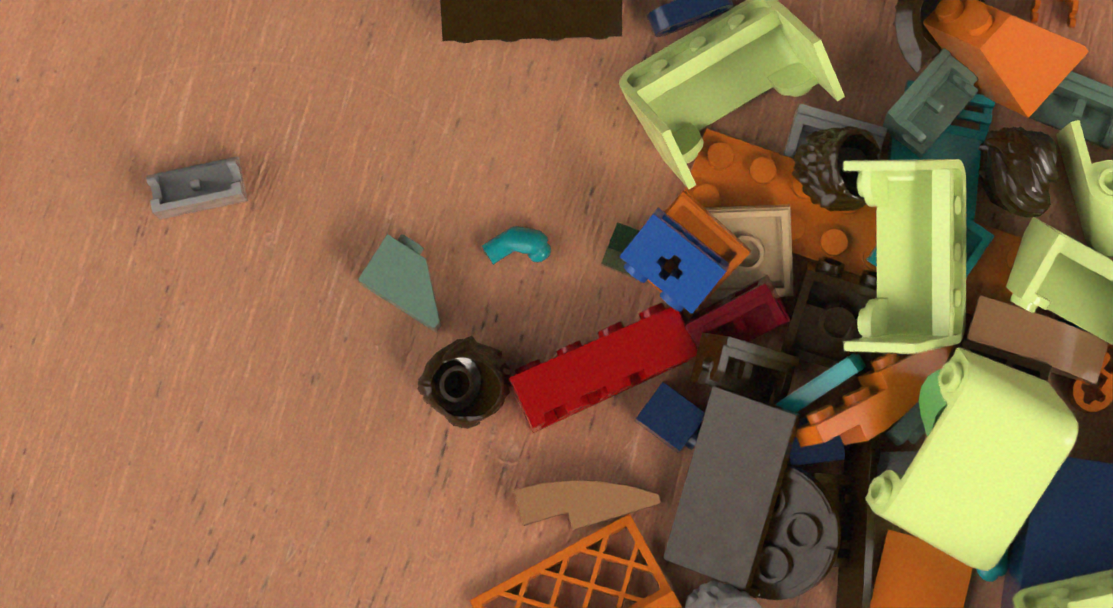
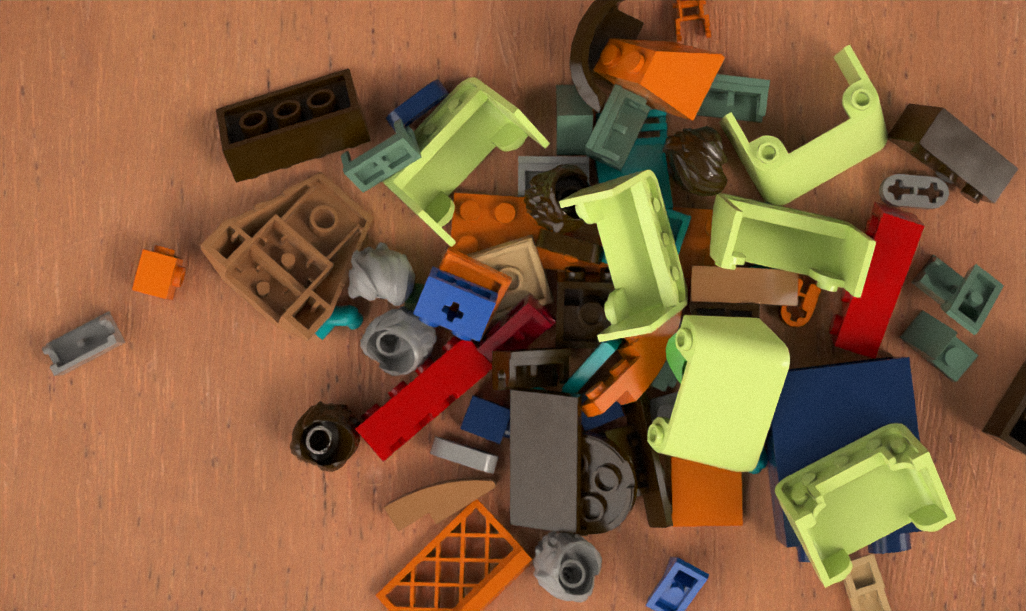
camera: 10 degrees left, 5 degrees up
(316, 125) = (159, 273): none -> orange brick
(403, 279) = (258, 371): sand green slope -> none
(485, 146) = (291, 253): none -> medium nougat wedge
(588, 289) = (398, 341): none -> light grey hair
(589, 203) = (381, 275): none -> light grey hair
(630, 454) = (464, 454): none -> light grey beam
(631, 61) = (382, 159): none -> sand green hinge
(834, 231) = (570, 246): none -> dark brown beam
(877, 80) = (573, 121): none -> sand green slope

